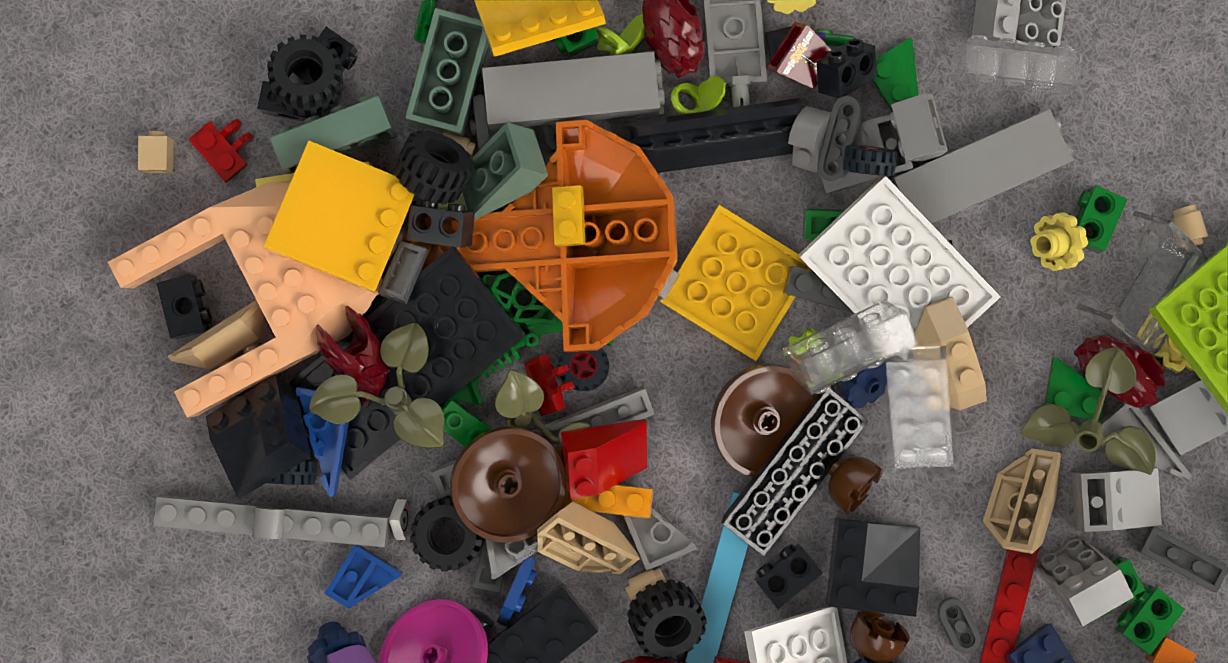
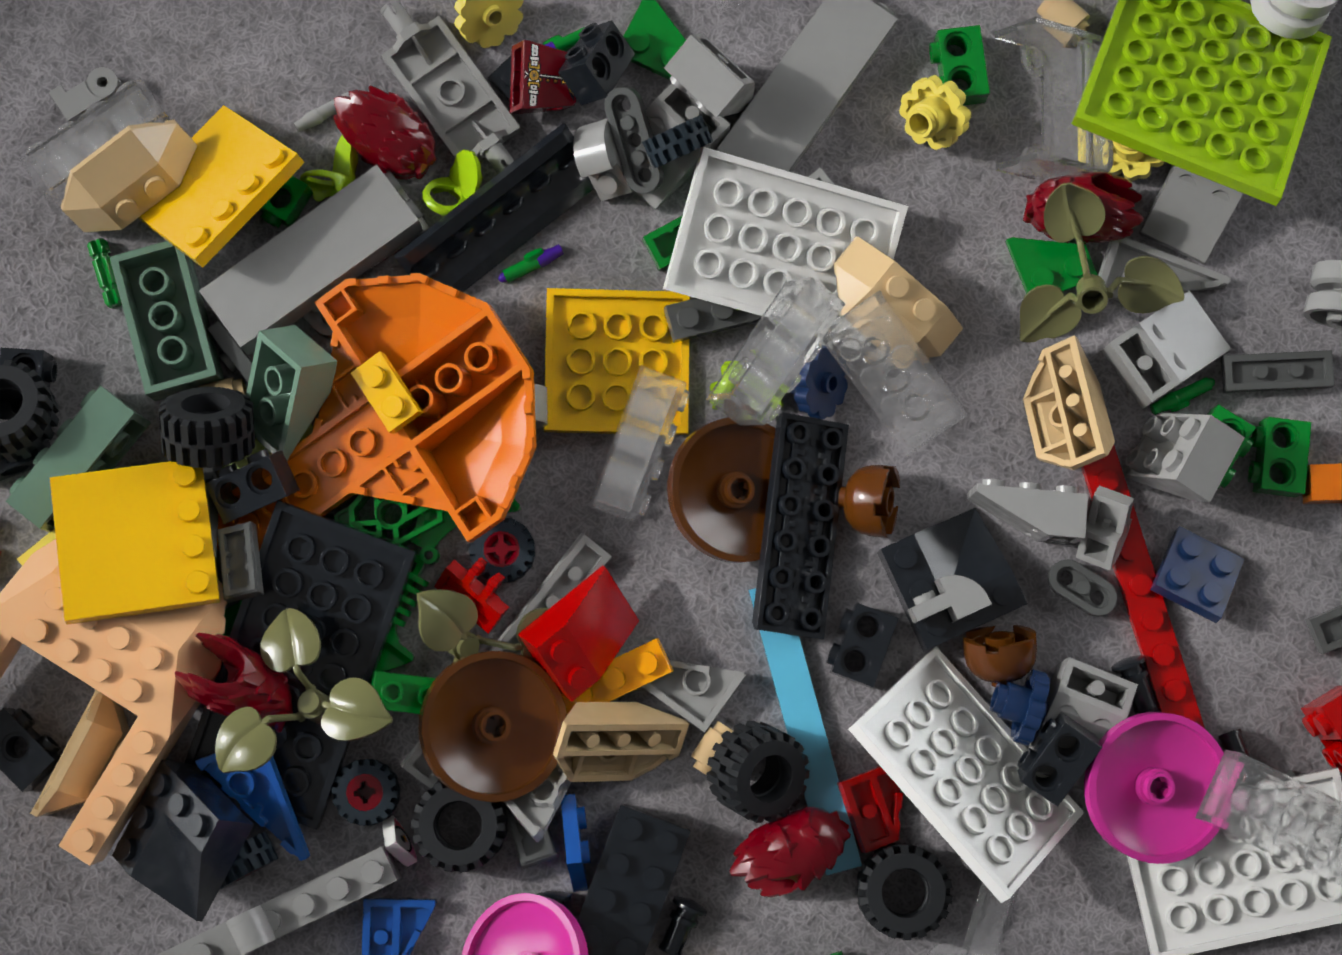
camera: 25 degrees left, 5 degrees down
(406, 470) = (379, 789): none -> black wheel
(718, 351) = (638, 444): none -> clear brick
(720, 179) = (532, 261): none -> green piece
(872, 585) = (957, 595): none -> light grey brick
(969, 567) = (1039, 514): none -> light grey slope
(1000, 597) = (1106, 528): none -> light grey brick
(1106, 537) = (1181, 398): none -> green piece

